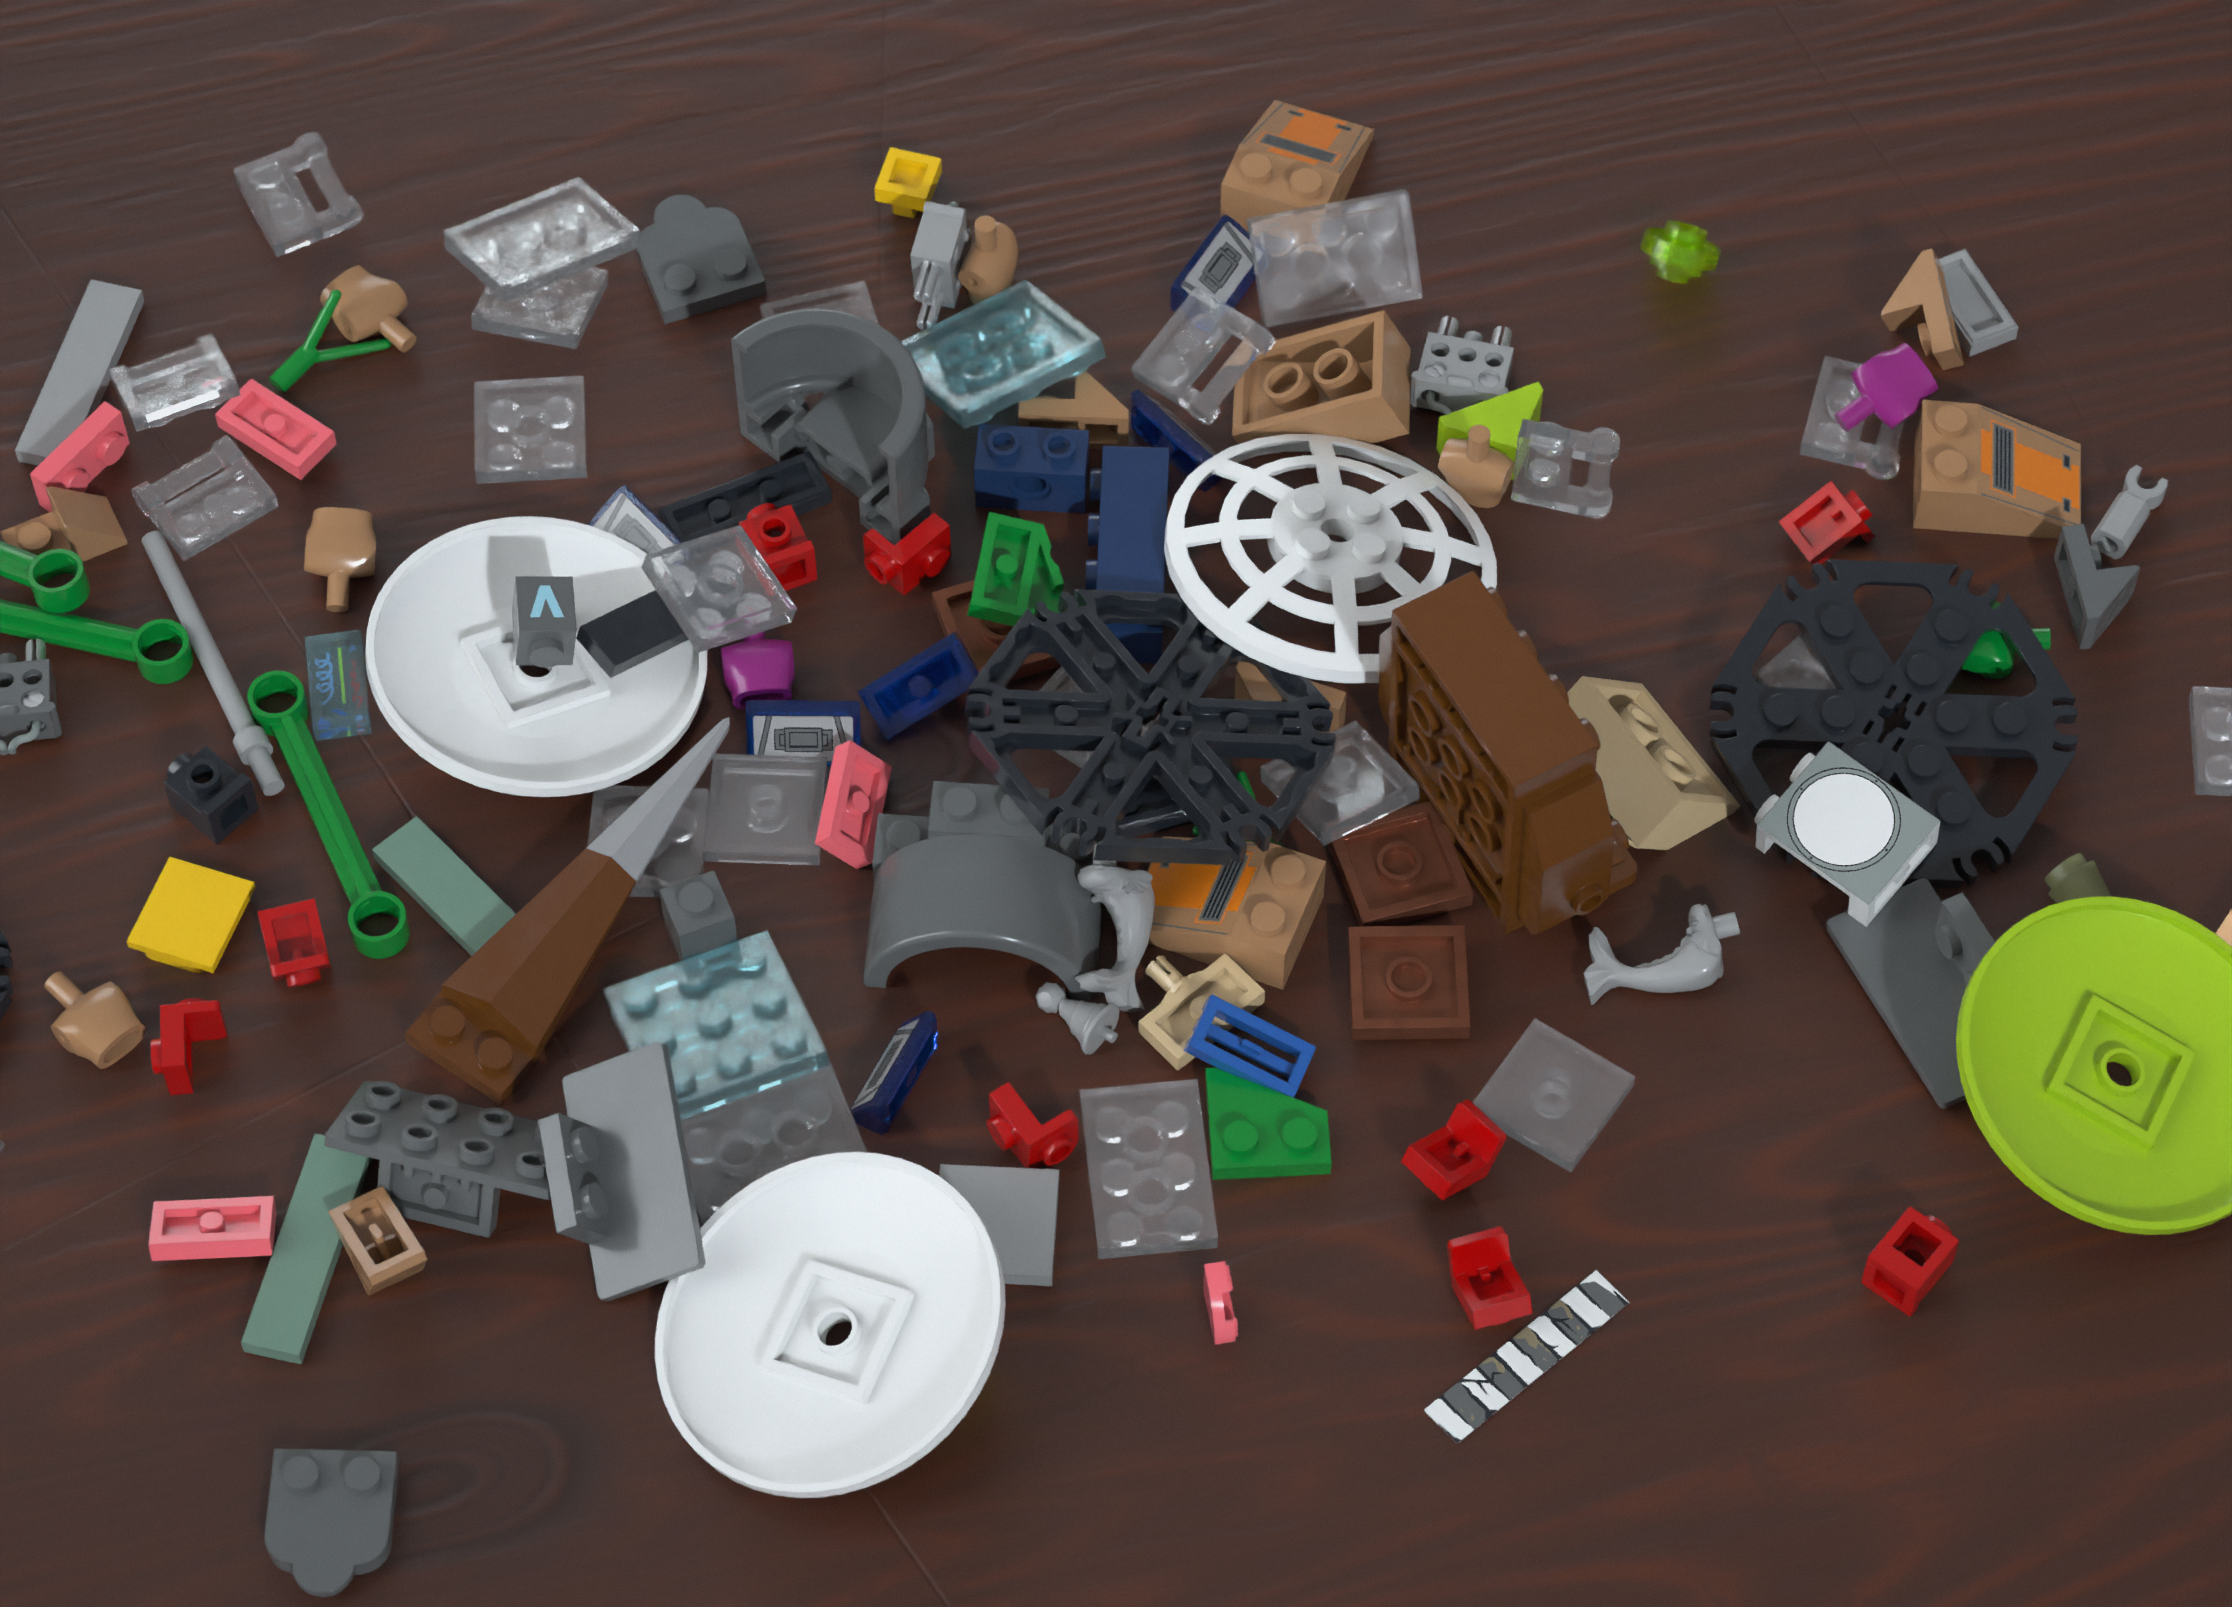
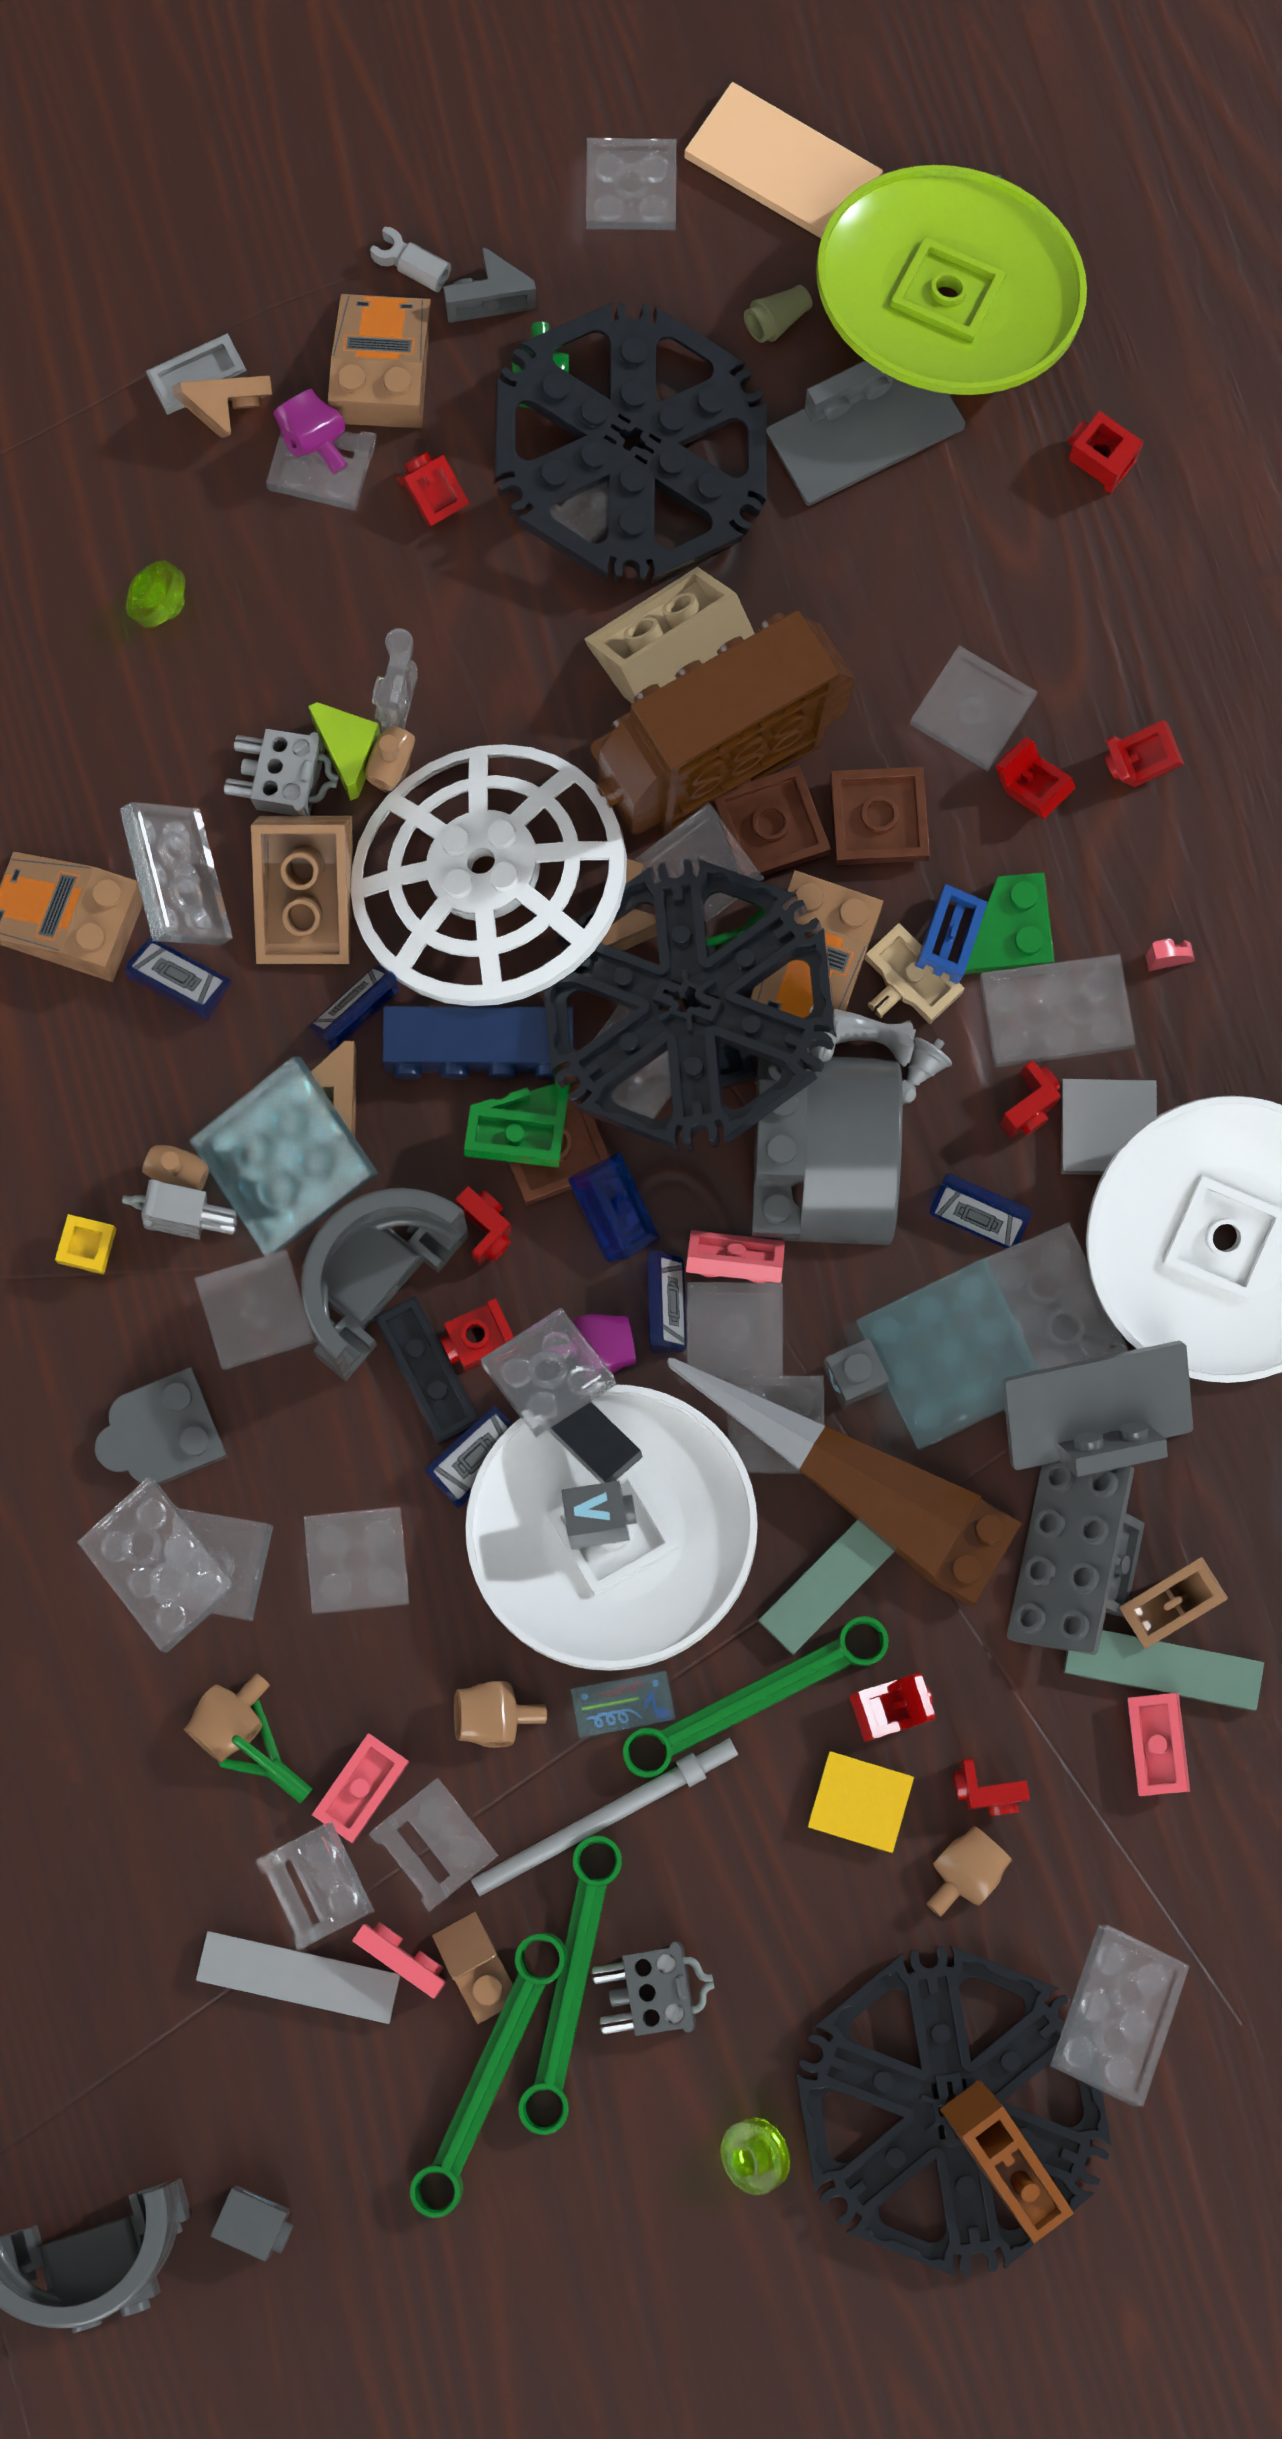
camera: 95 degrees left, 20 degrees up
(210, 793) = (758, 1786): black brick -> none
(282, 202) = (99, 1815): clear plate -> none
(1031, 468) = (396, 1123): dark blue brick -> none
(1190, 344) = (264, 999): clear plate -> none
(1526, 1356) = (1189, 733): sticker -> none
(1688, 968) = (854, 602): light grey animal -> none
(1848, 829) = (747, 476): panel -> none

